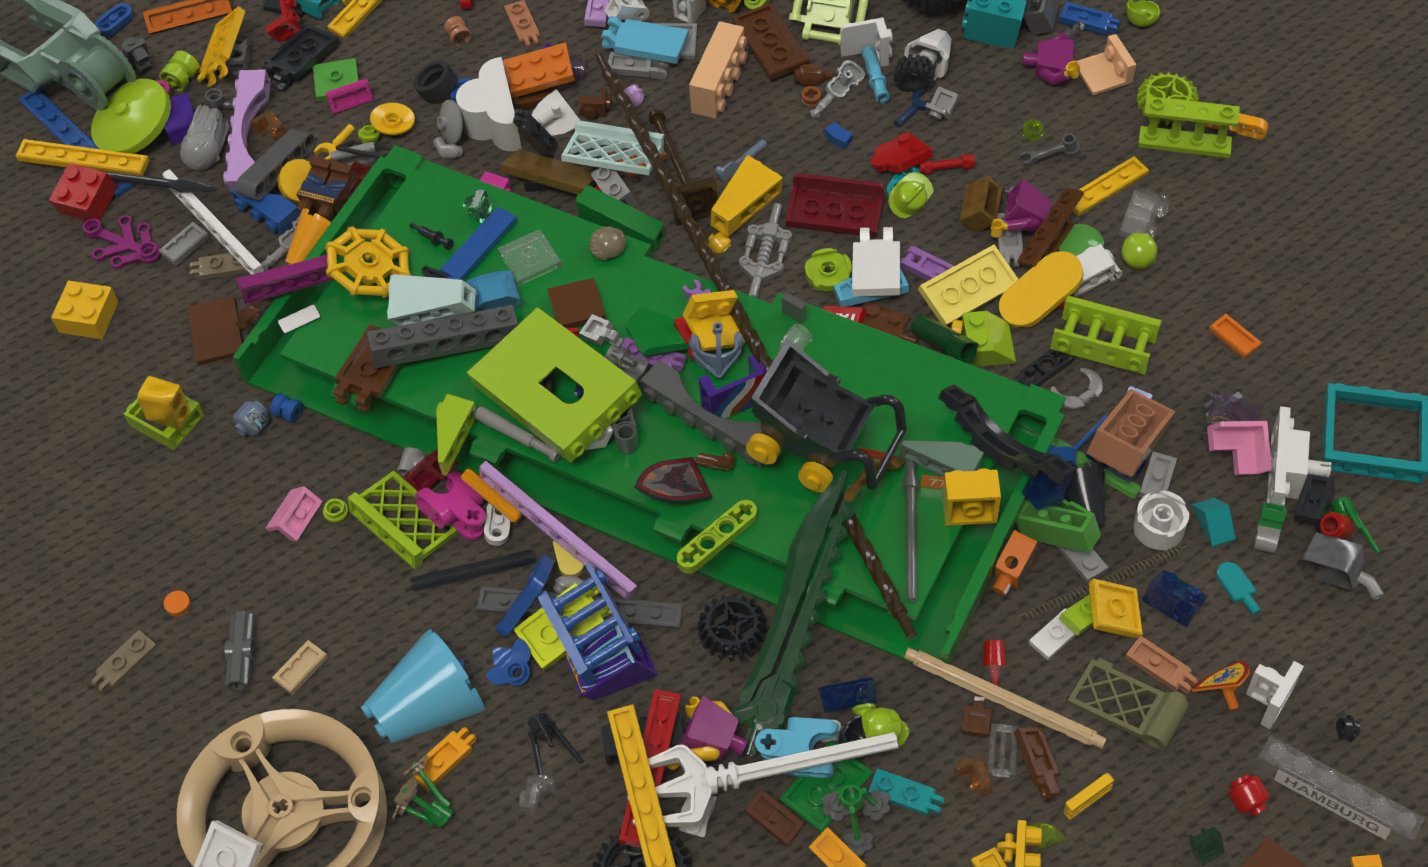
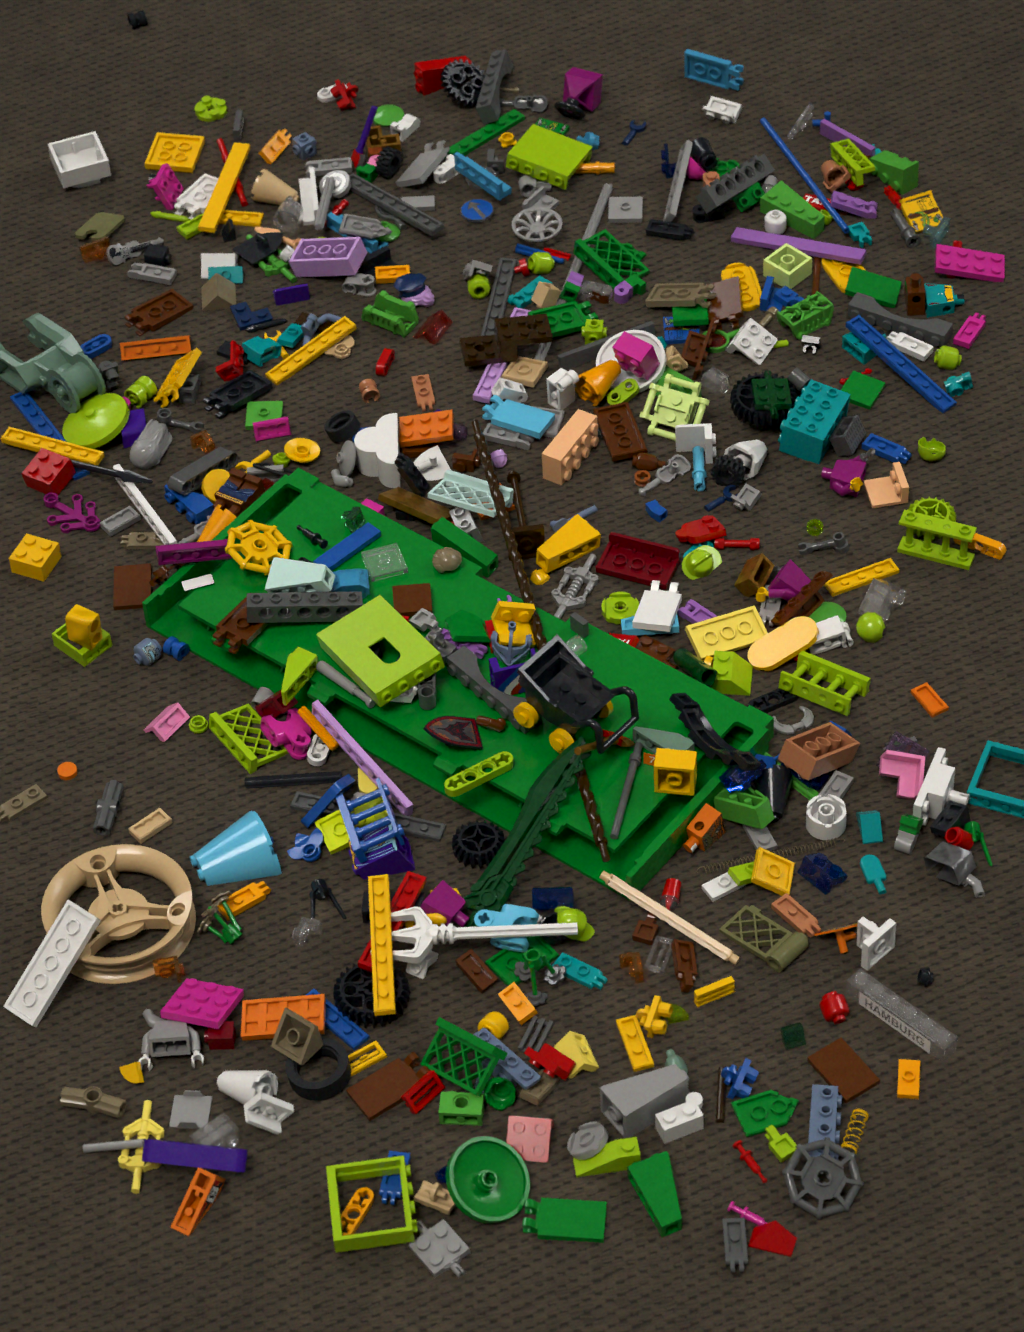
camera: 10 degrees right, 10 degrees down
(252, 94) = (194, 416): lavender arch -> none

